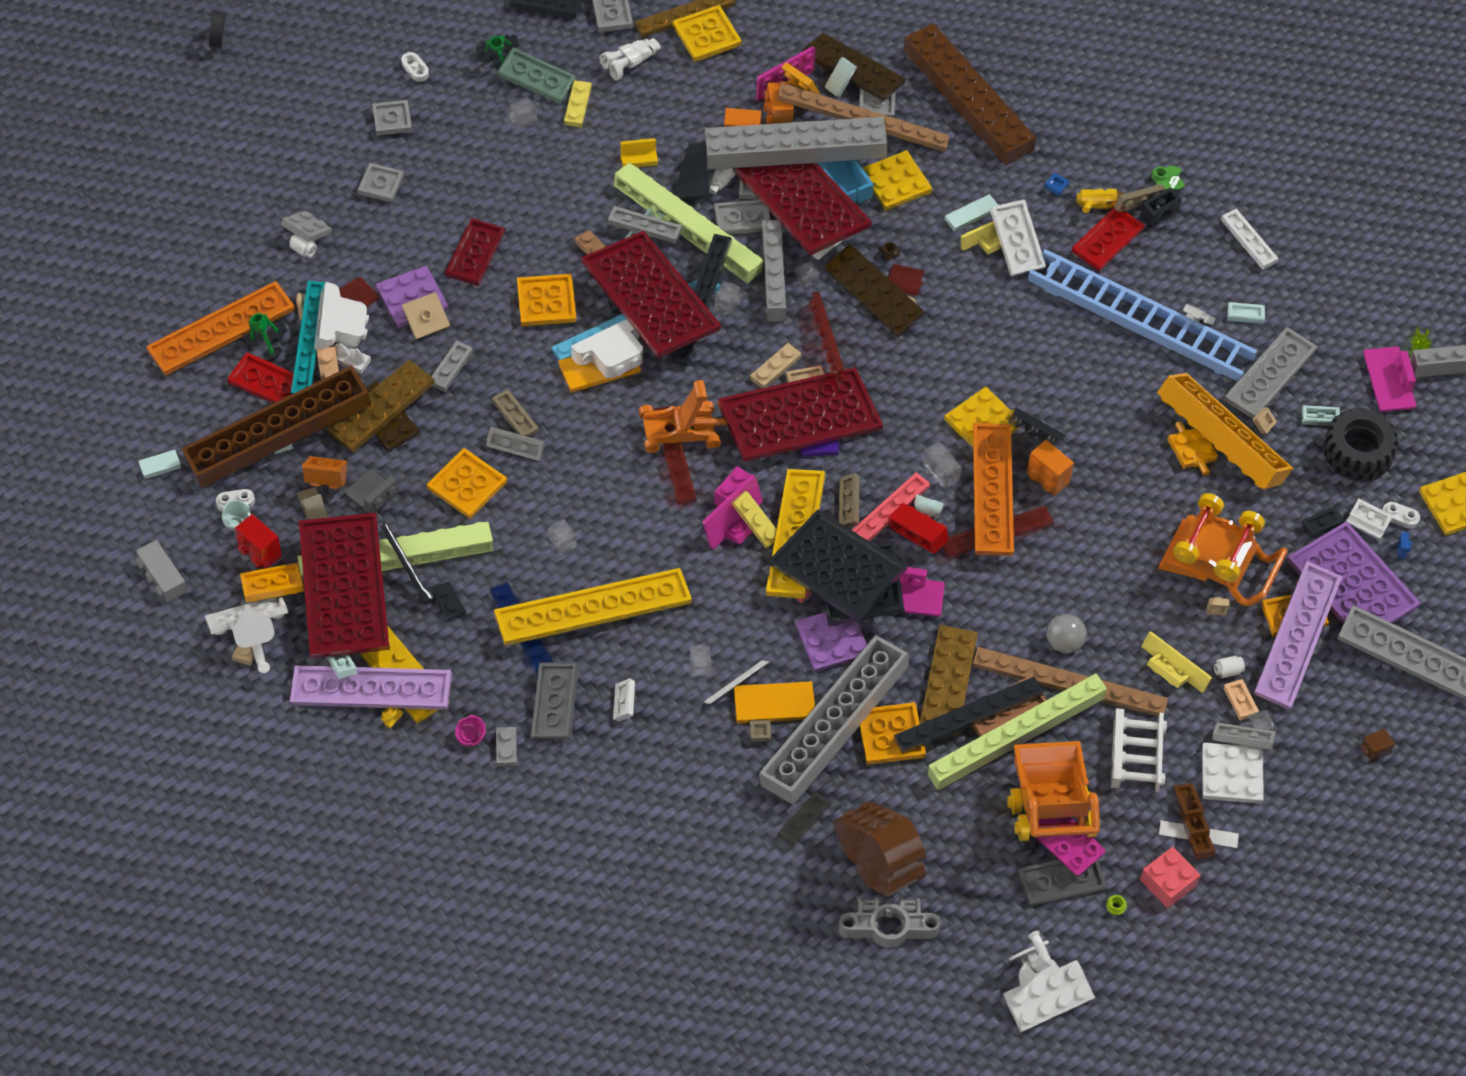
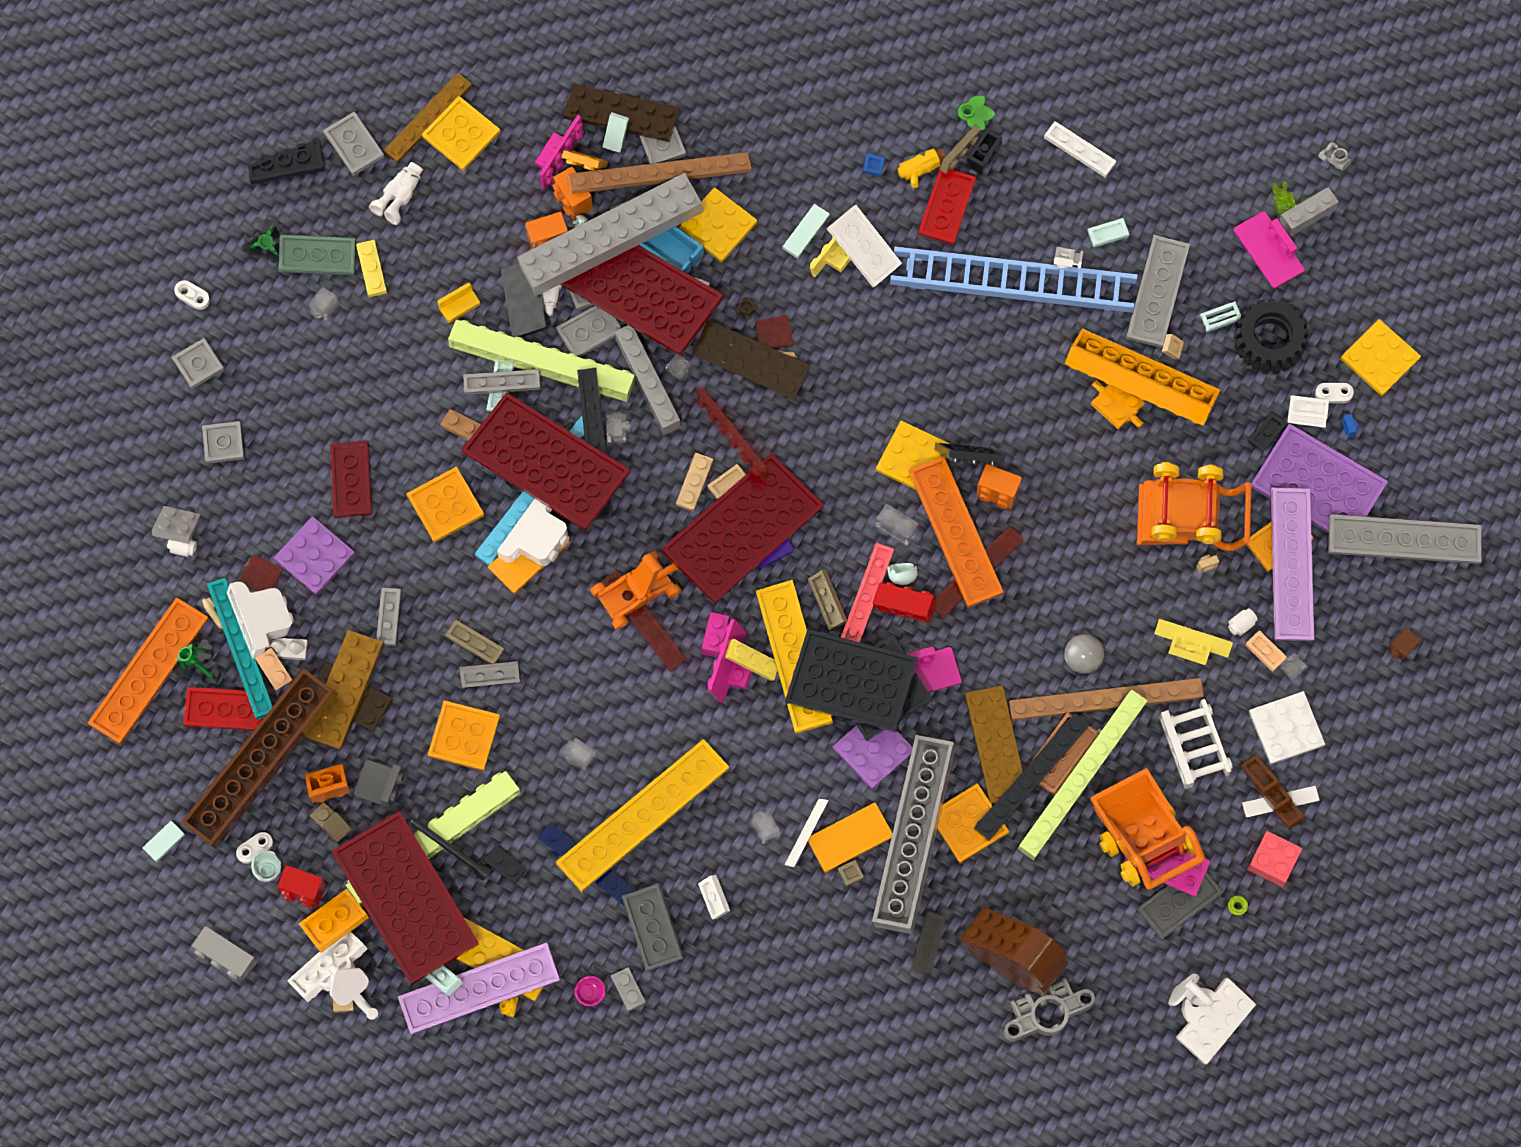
camera: 20 degrees left, 15 degrees up
(425, 315) = (339, 573): tan plate -> none
(969, 94) = (747, 97): reddish brown brick -> none
(1244, 736) = (1284, 688): light grey plate -> none

